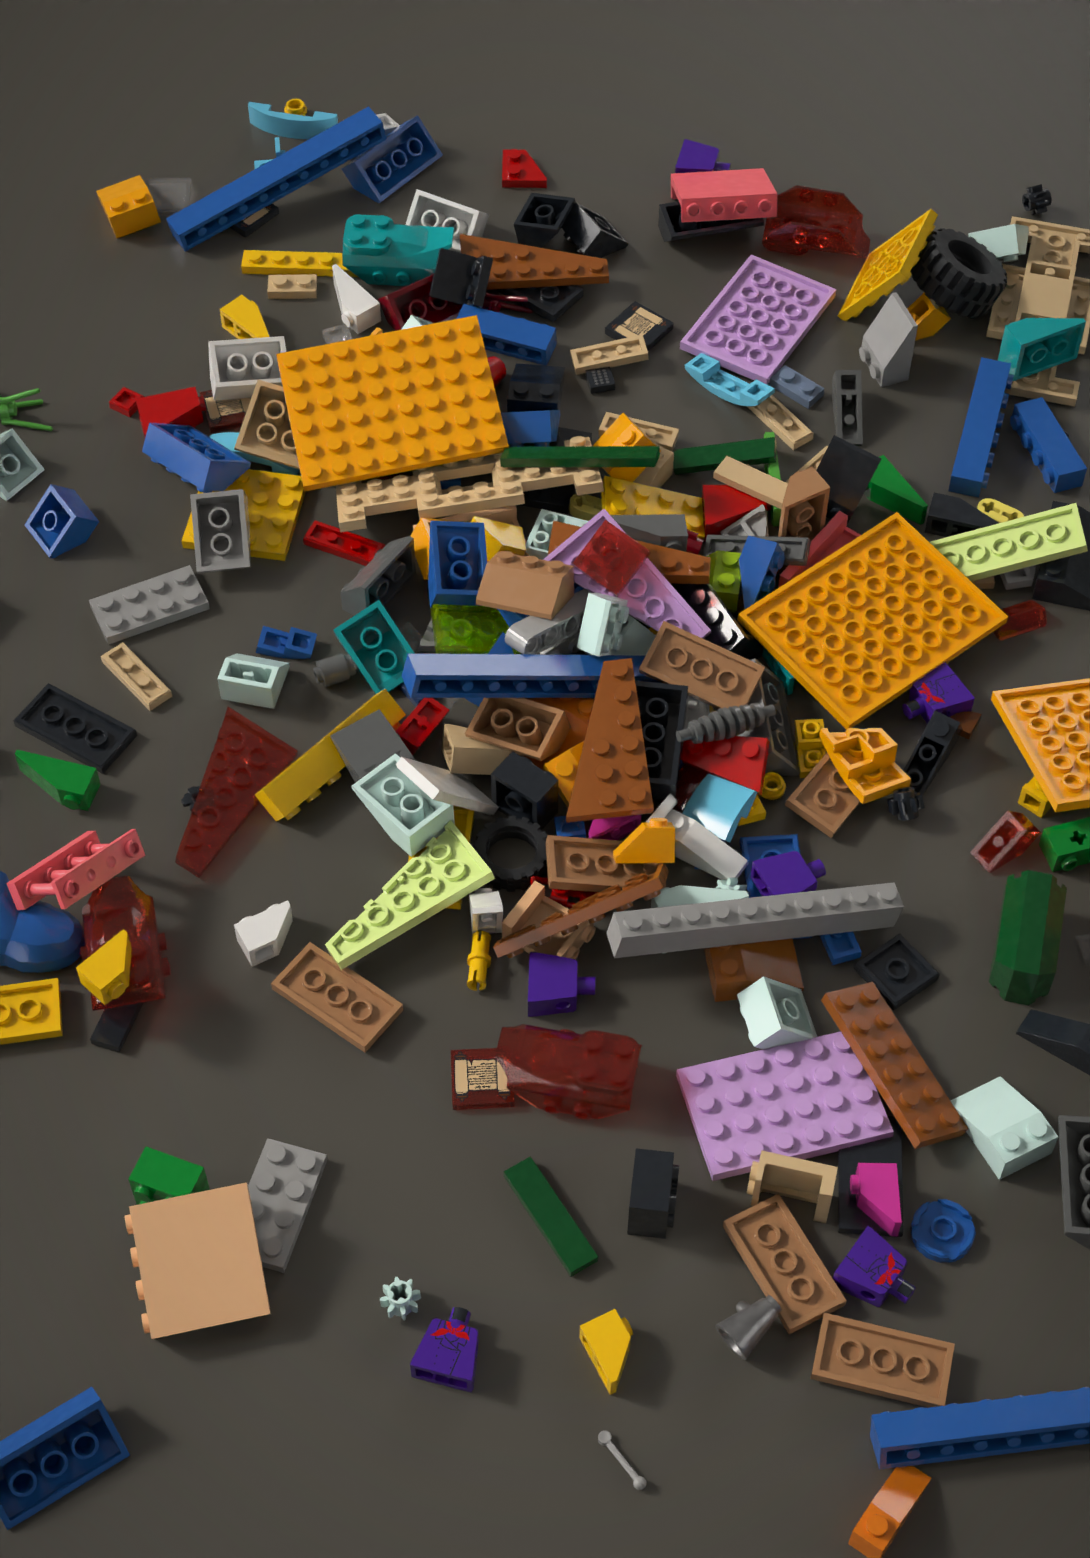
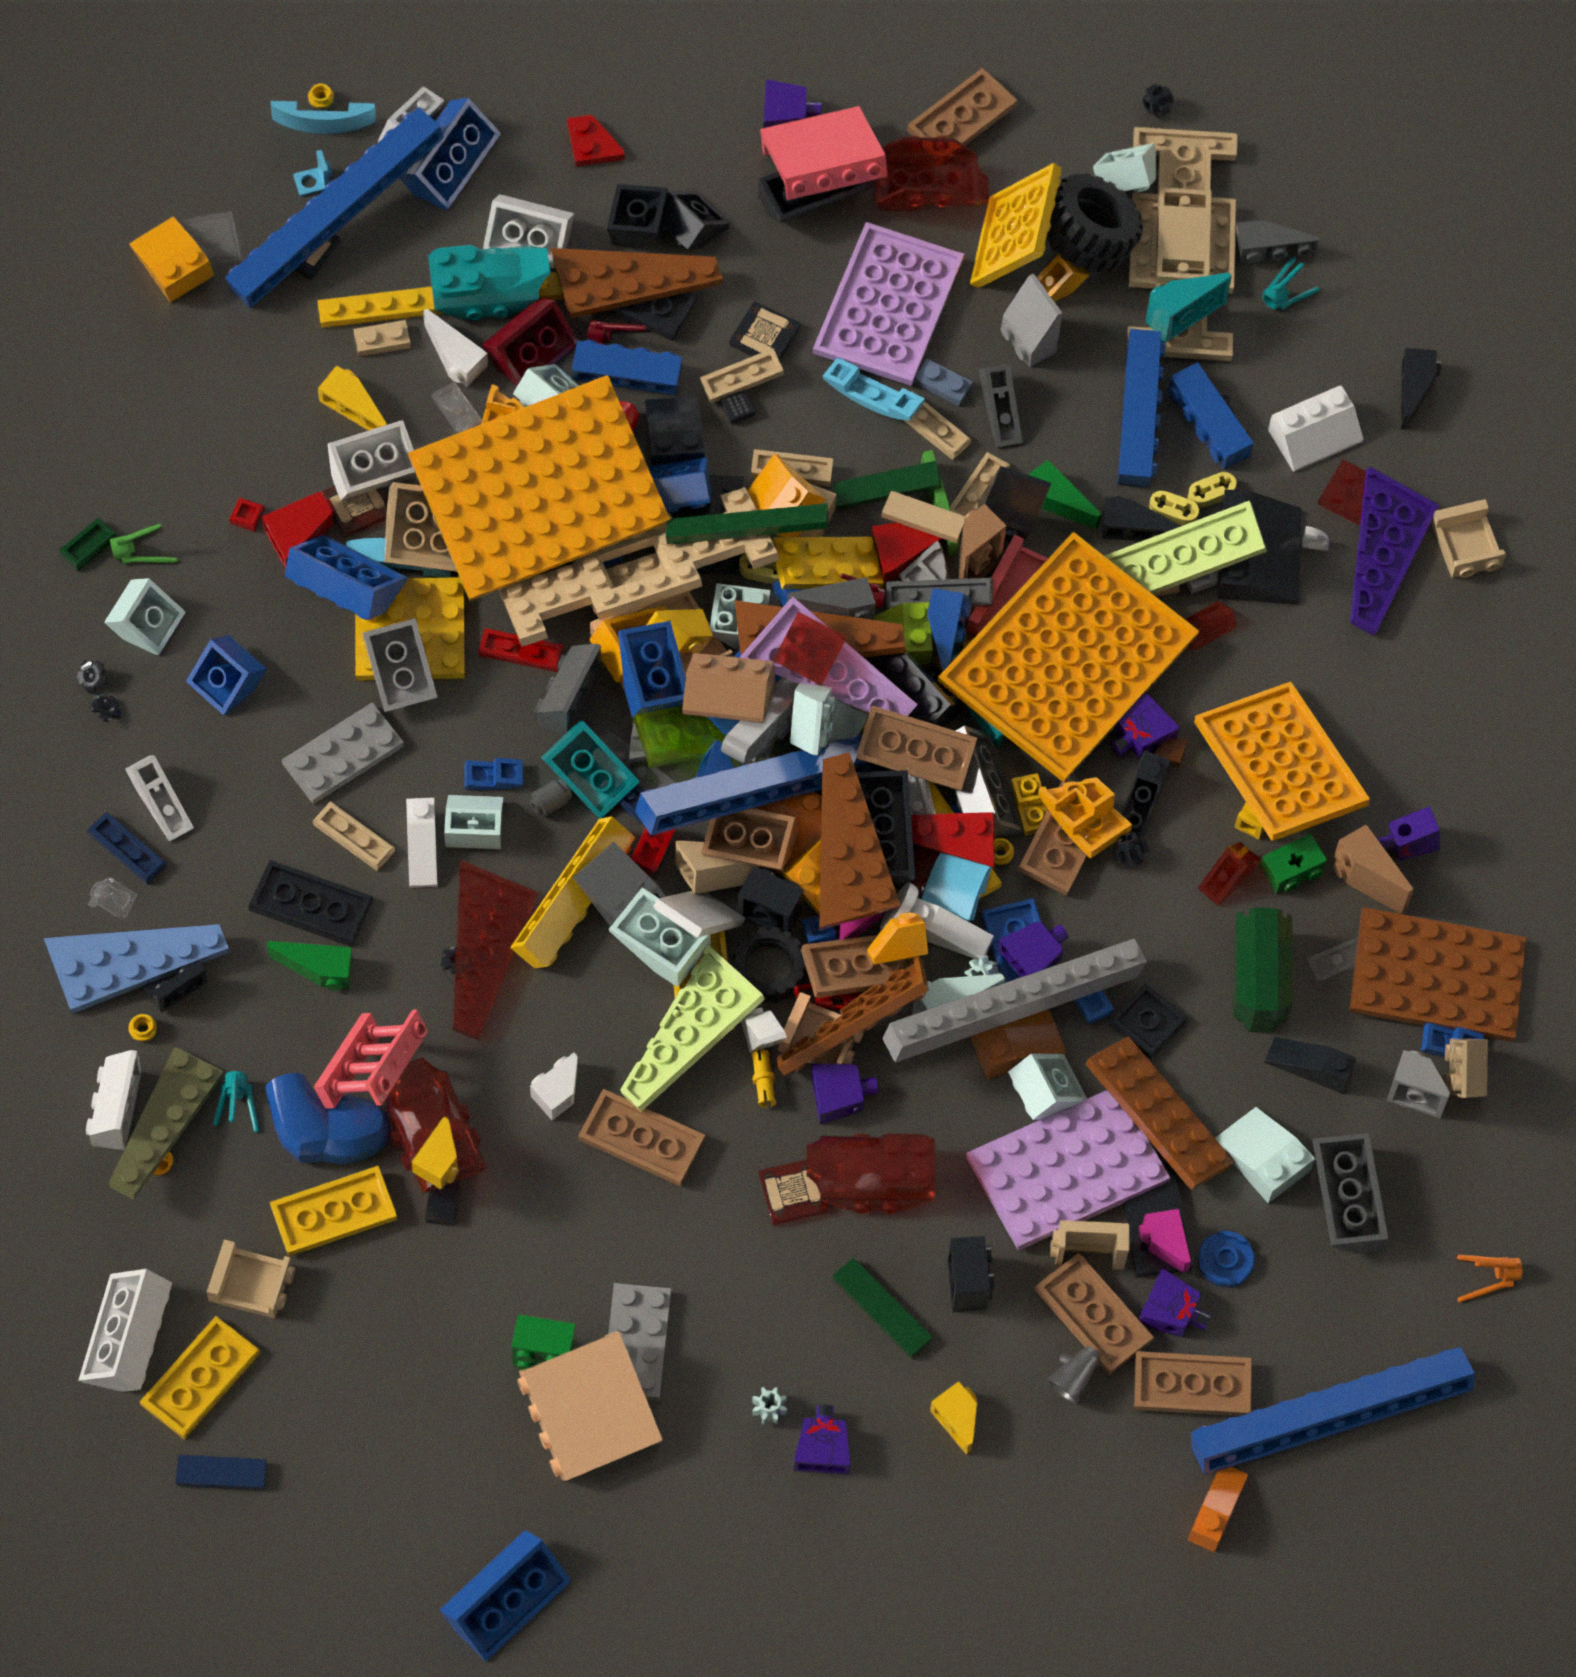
camera: 15 degrees left, 10 degrees up
(198, 688) = (421, 842): none -> white slope
(461, 278) = (571, 313): black bracket -> none
(604, 1439) = (970, 1492): light grey hinge -> none
(726, 723) = (950, 803): dark grey piece -> none
(867, 184) = (965, 110): none -> medium nougat plate
(1038, 502) = (1211, 489): none -> light yellow beam

